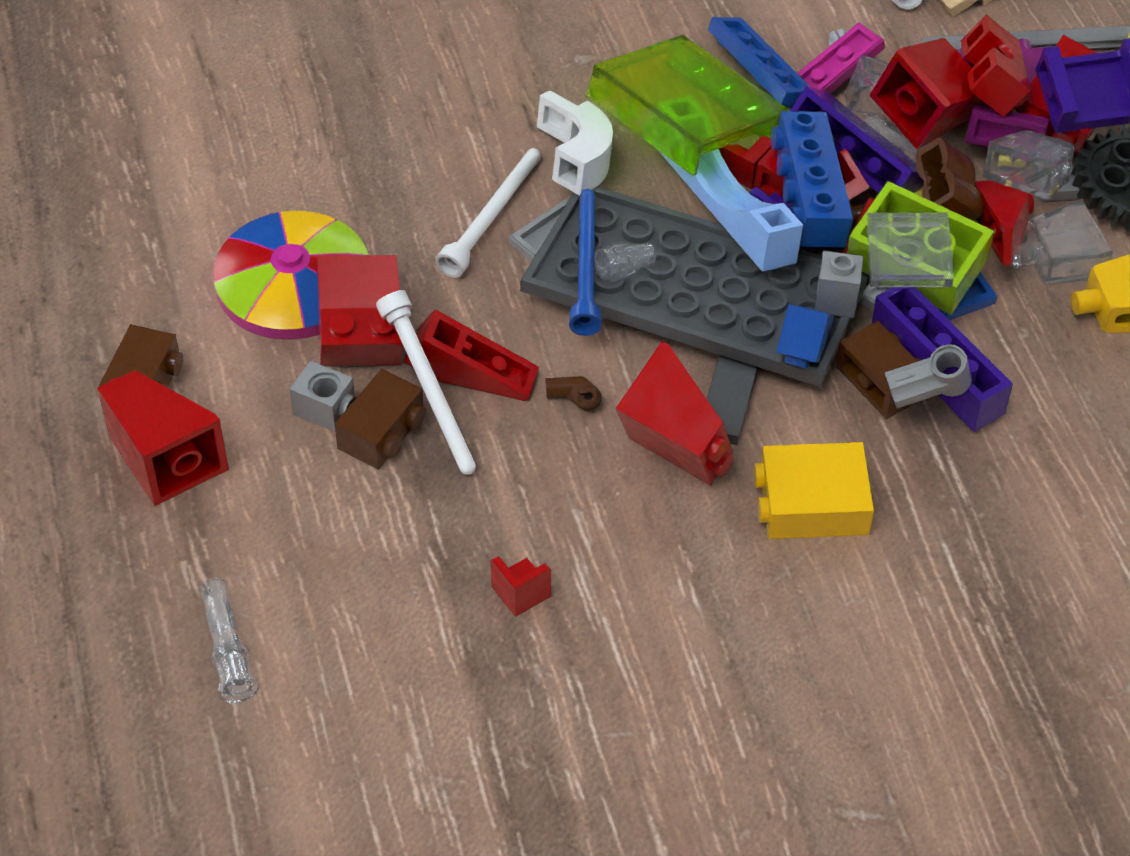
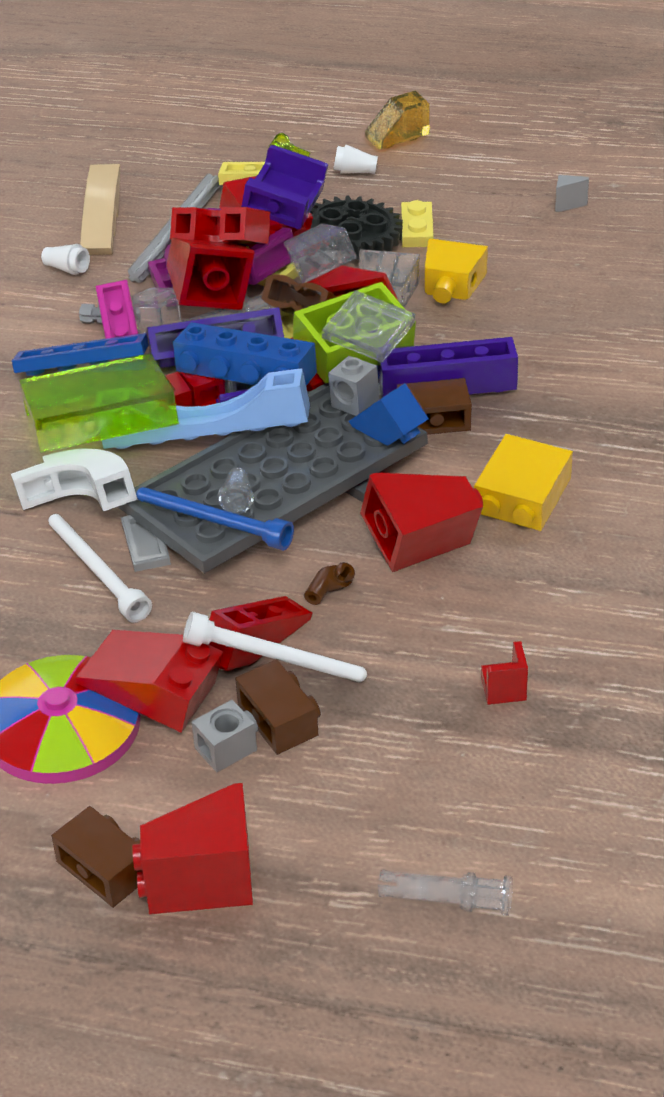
camera: 60 degrees left, 10 degrees down
(925, 377) = (484, 368): light grey piece -> none

